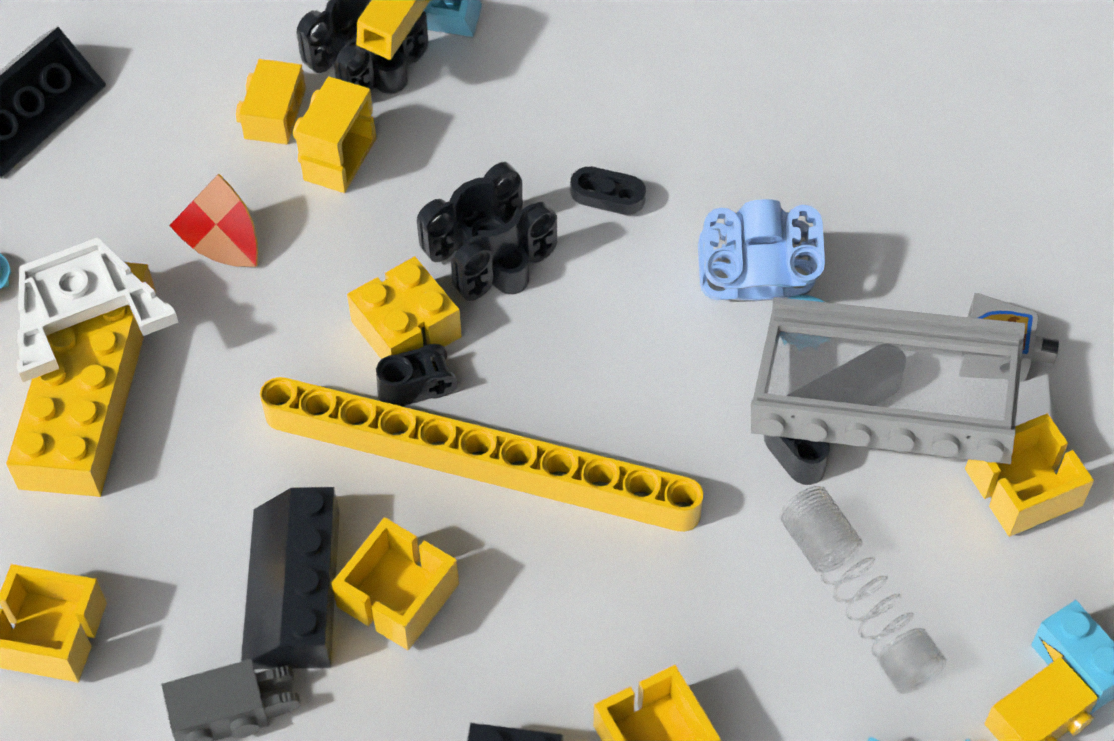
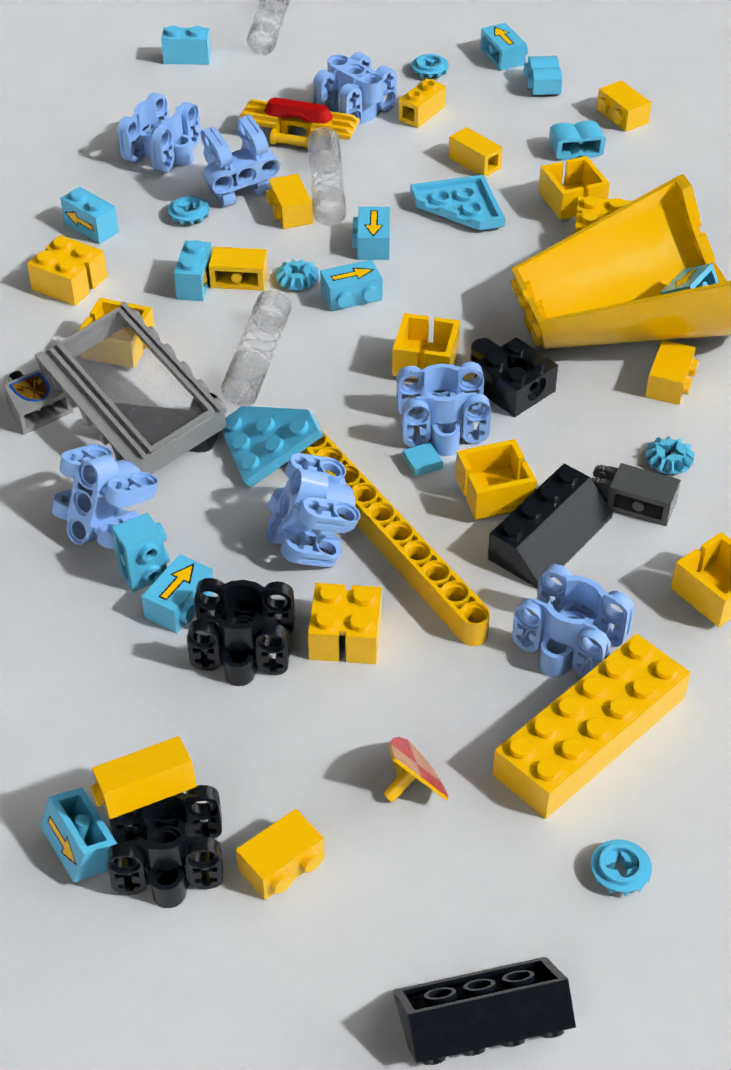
camera: 140 degrees left, 10 degrees down
(75, 288) = (568, 739): white wing -> none
(167, 459) = (571, 622): none -> light blue piece
(335, 134) = (269, 767): yellow piece -> none
(415, 375) = (390, 580): black piece -> none
(518, 583) = (422, 459): none -> medium azure tile
(539, 607) = (443, 406): none -> light blue piece
(540, 380) = (309, 508): none -> light blue piece
(592, 242) = (172, 595): none -> medium azure brick
(608, 190) = (130, 630): black plate -> none
(660, 234) = (140, 550): none -> medium azure brick
(694, 451) = (267, 438): none -> medium azure plate

